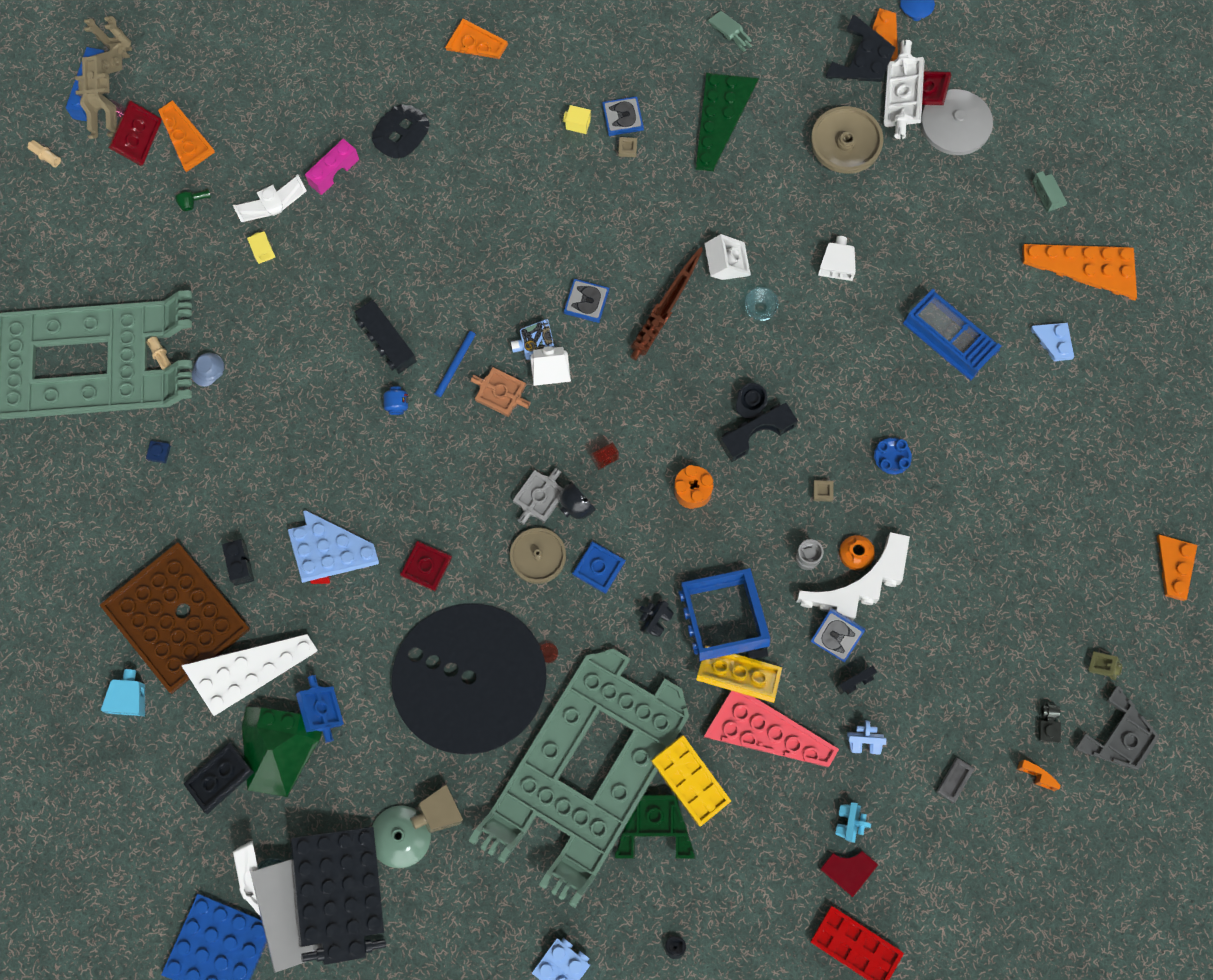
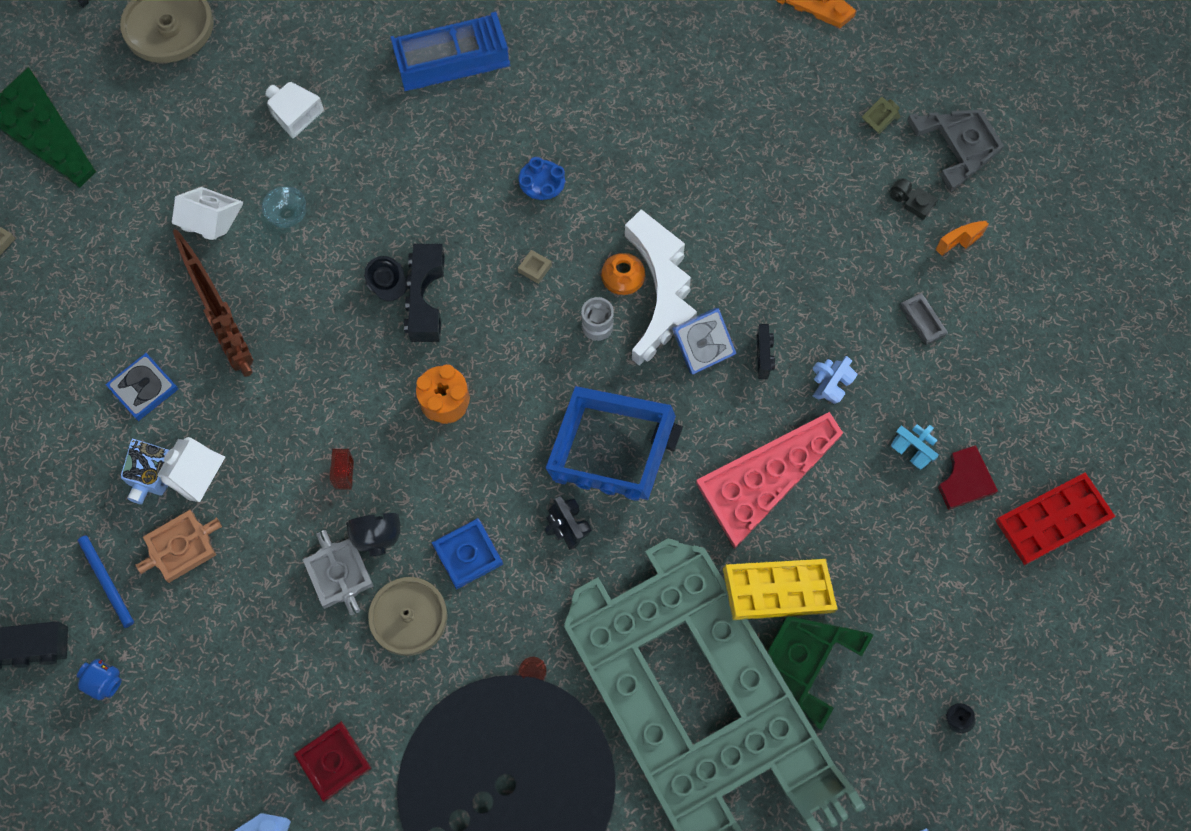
camera: 60 degrees left, 5 degrees down
(741, 675) = (691, 465): yellow plate -> none

